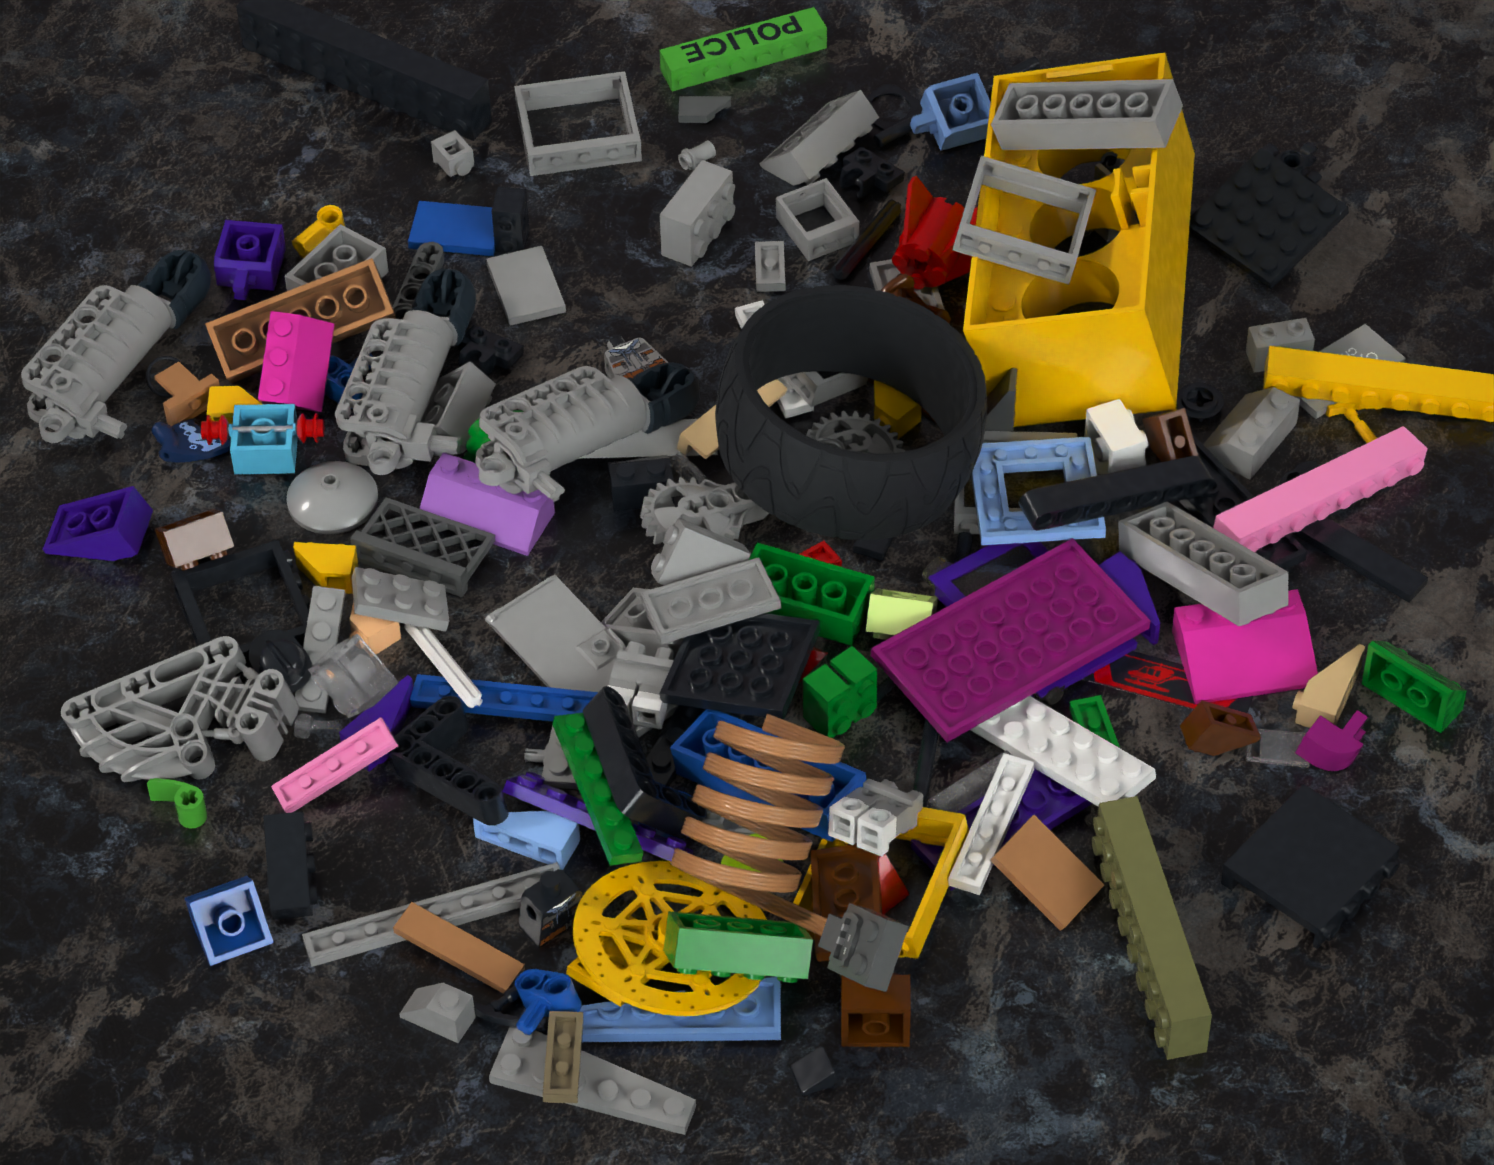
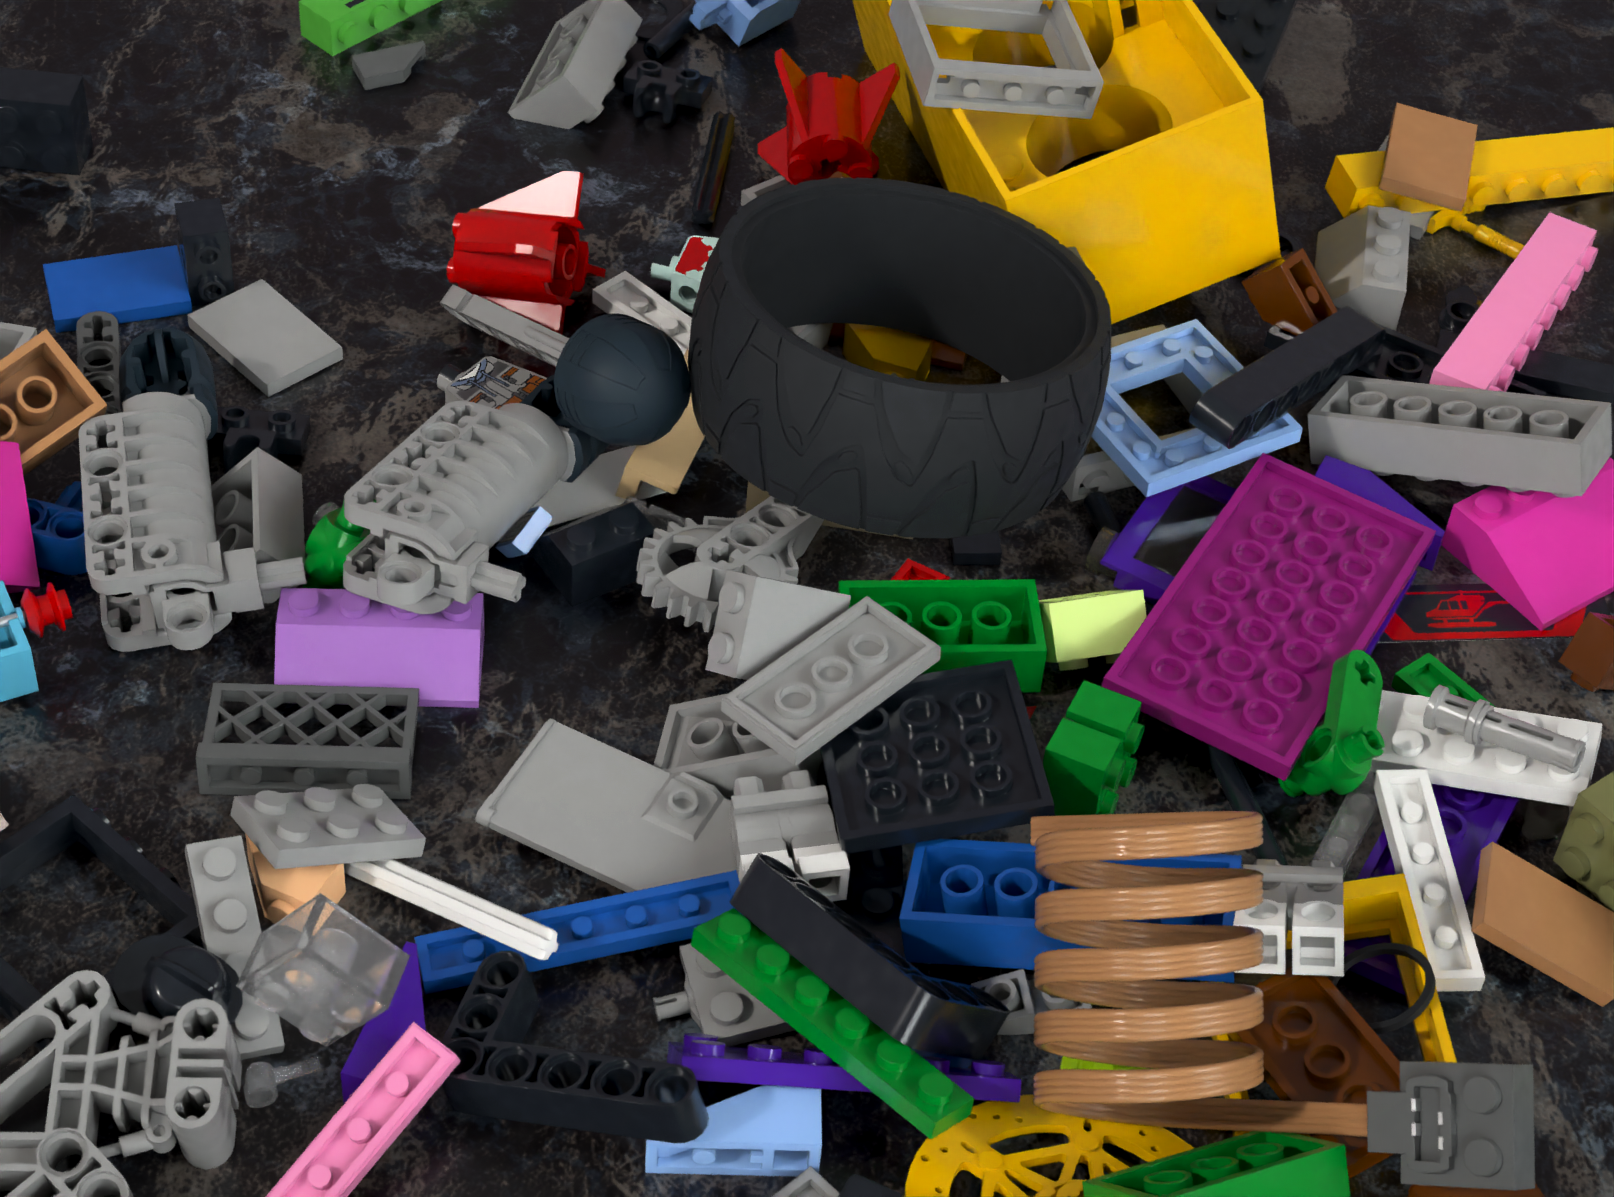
camera: 30 degrees left, 5 degrees down
(327, 564) = (168, 811): yellow slope -> none
(332, 497) = (118, 711): light grey dish -> none
(456, 160) = (70, 198): light grey brick -> none
(582, 153) = (241, 157): light grey window -> none
(603, 457) = (524, 533): none -> tile
(680, 373) = (610, 376): none -> black piece
(692, 157) = (411, 124): light grey pin -> none
(697, 213) = (472, 167): light grey brick -> none
(697, 277) = (525, 250): none -> red brick
(770, 266) = (608, 230): light grey plate -> none
(827, 237) = (674, 154): light grey window -> none
(912, 851) = (1403, 950): none -> black piece
(1001, 722) = (1343, 747): none -> green piece
(1075, 744) = (1481, 723): none -> light grey pin
(1115, 438) = (1229, 309): white brick -> none
(1286, 334) = (1310, 159): light grey brick -> none
(1333, 363) = (1428, 157): none -> medium nougat tile

